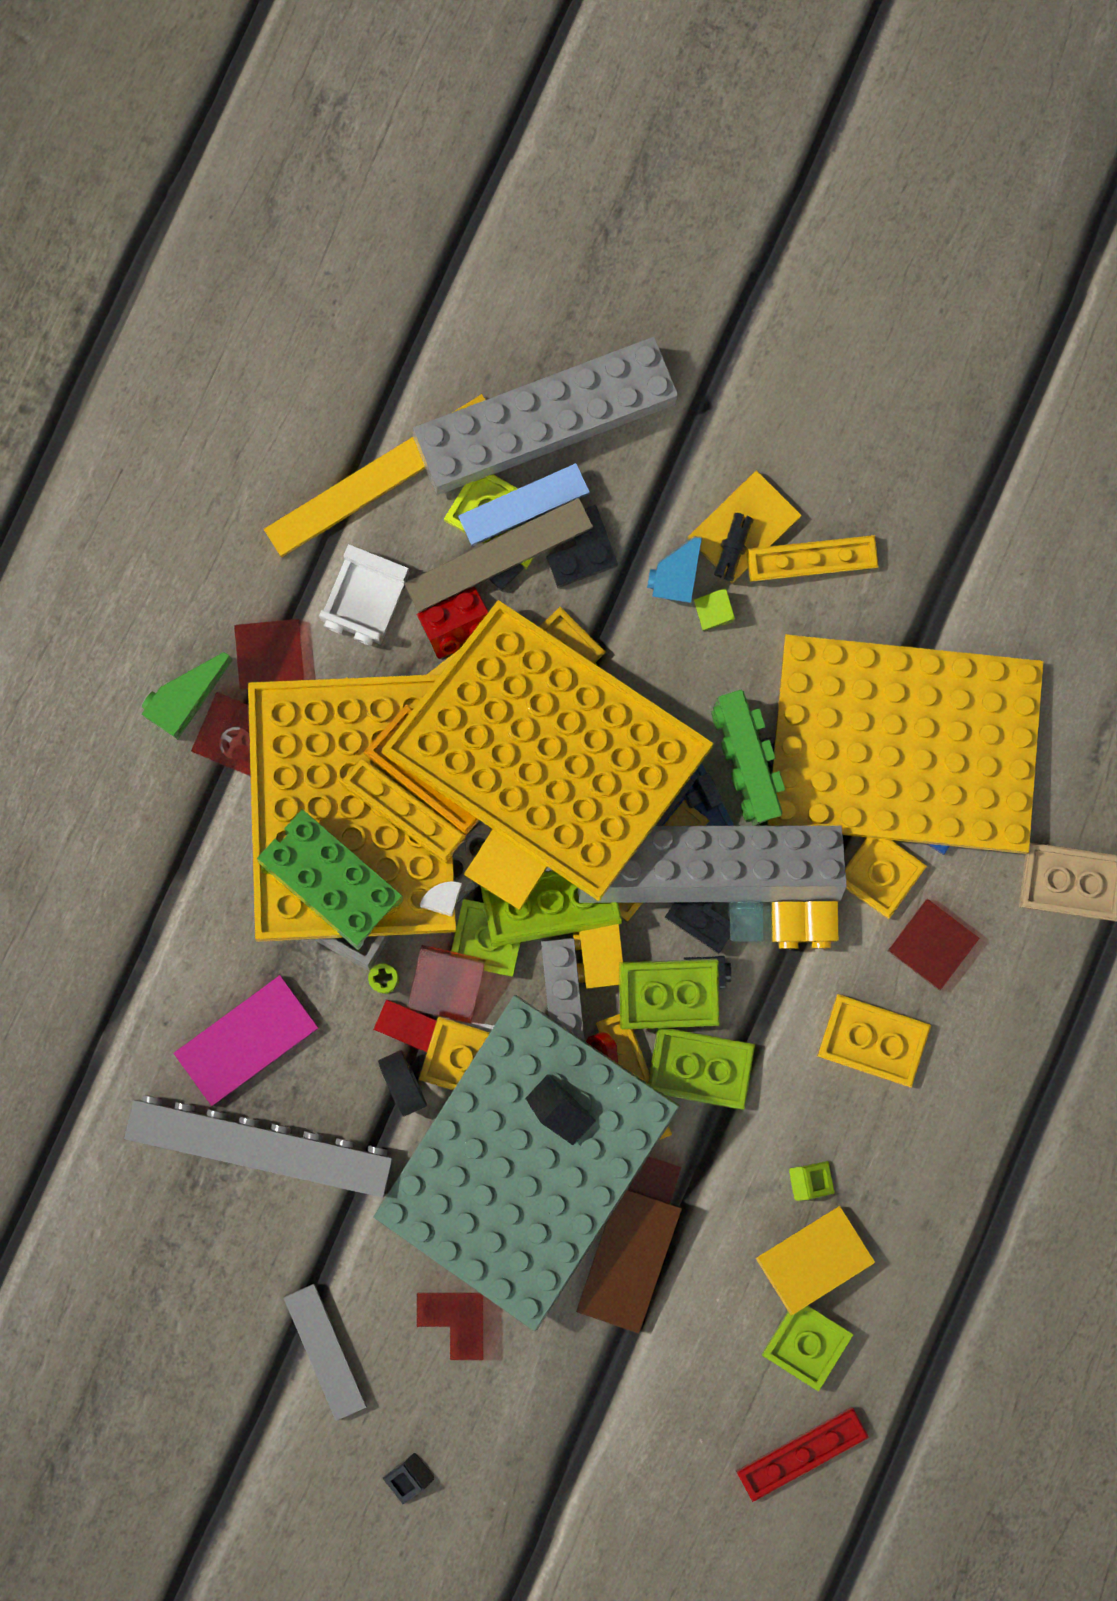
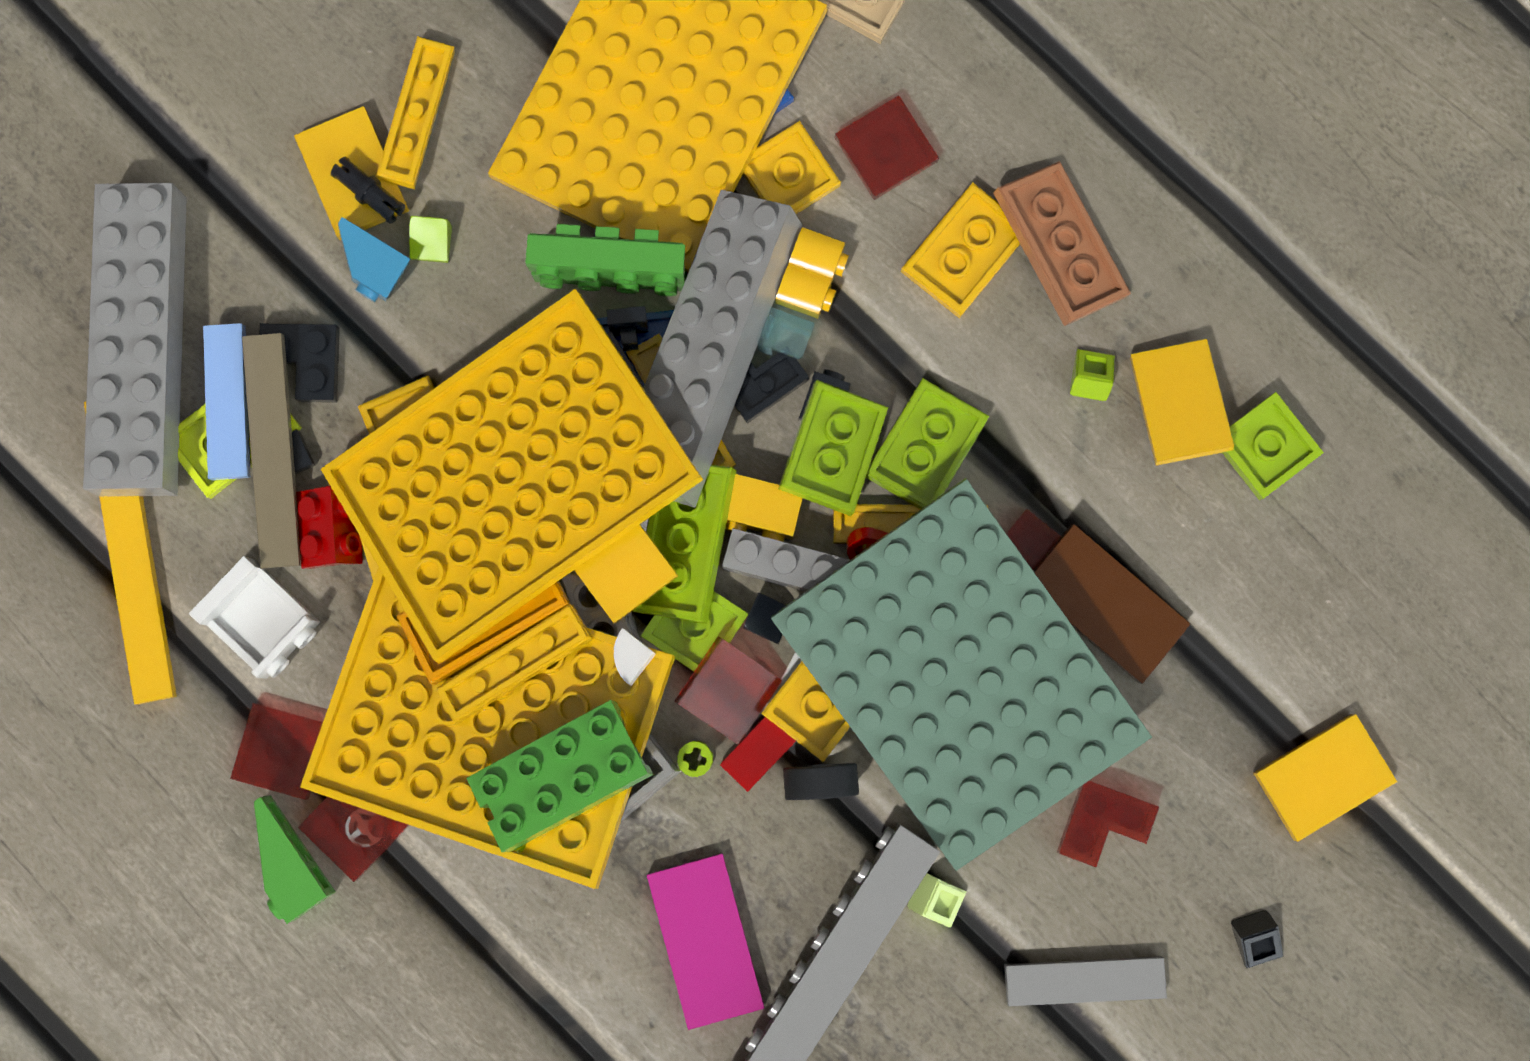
camera: 70 degrees left, 0 degrees up
(345, 1210) = (937, 900): none -> yellowish green slope
(514, 986) = (760, 621): none -> black slope
(557, 1487) = (1325, 777): none -> yellow tile
(559, 1110) = (920, 614): black slope -> none
(802, 1454) = (1382, 497): red tile -> none
(908, 1116) = (1061, 243): none -> nougat tile

